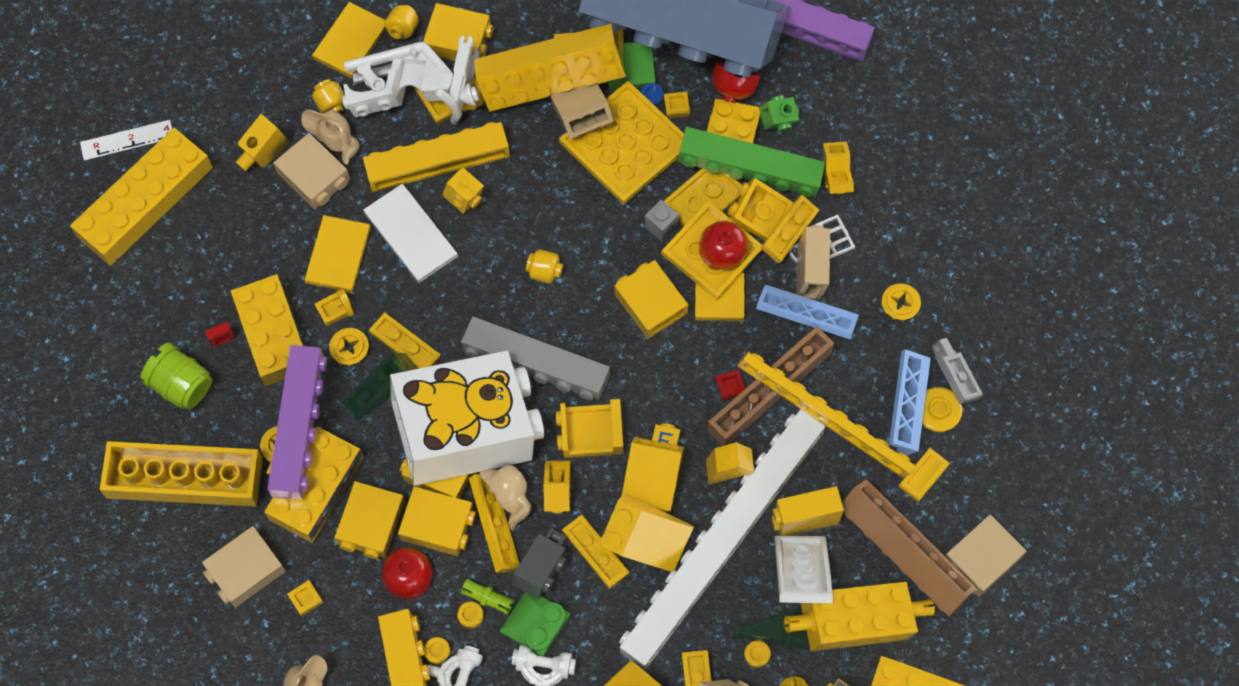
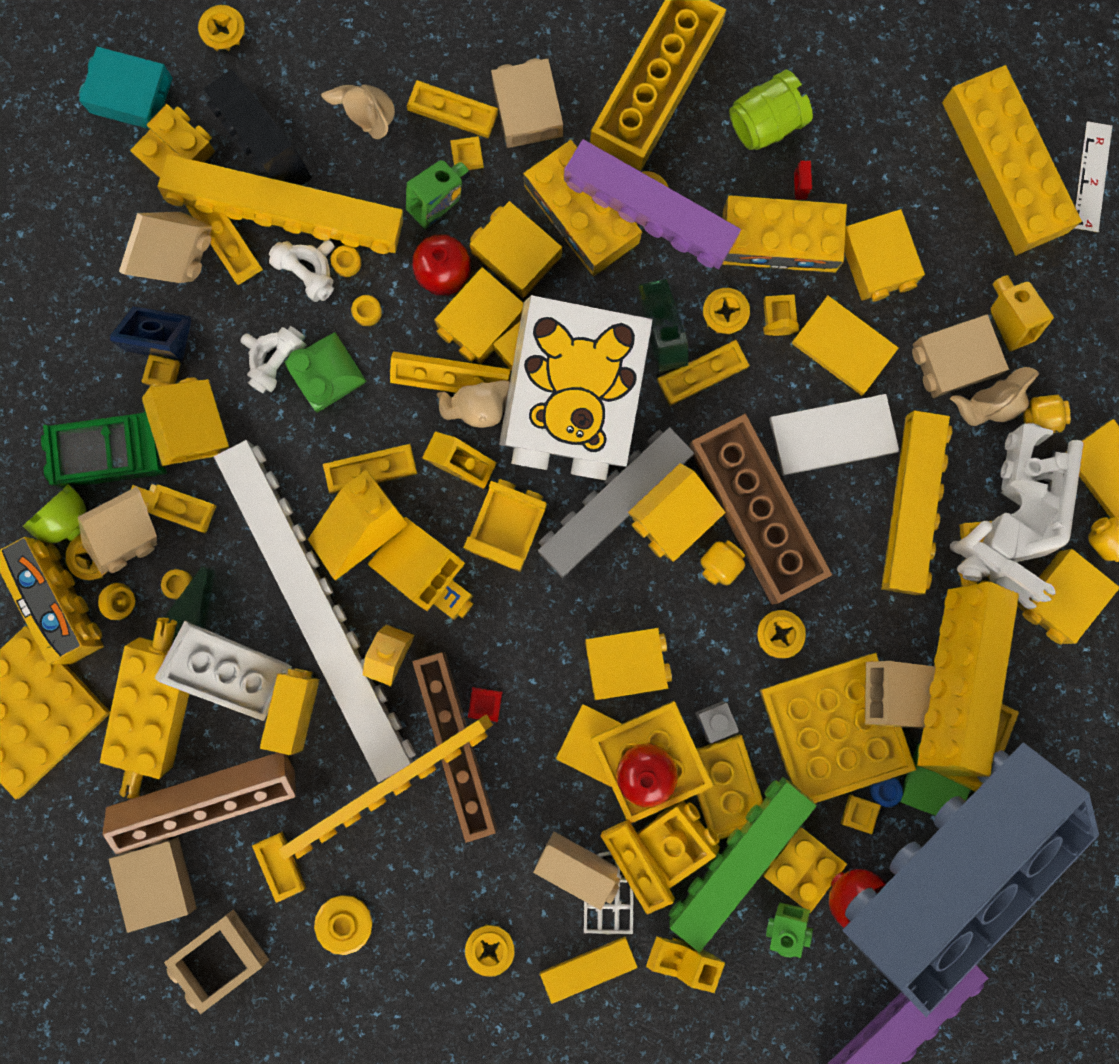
camera: 110 degrees right, 15 degrees up
(257, 253) = (882, 256): none -> yellow brick
(271, 627) = (452, 109): none -> yellow tile
(351, 600) = (435, 191): none -> bright green torso
(463, 191) = (855, 512): yellow head -> none
(487, 596) = (375, 334): lime pin -> none
(493, 256) = (759, 510): none -> medium nougat brick
(523, 310) = (676, 512): none -> yellow brick
(541, 563) = (379, 402): dark grey brick -> none
(574, 197) = (794, 638): none -> yellow gear
(807, 311) = (525, 836): light blue fence -> none
(878, 232) = (588, 970): none -> yellow tile
(909, 416) = (360, 894): light blue fence -> none
(956, 372) = (374, 968): light grey hinge -> none
(1003, 501) = (243, 945): none -> tan window

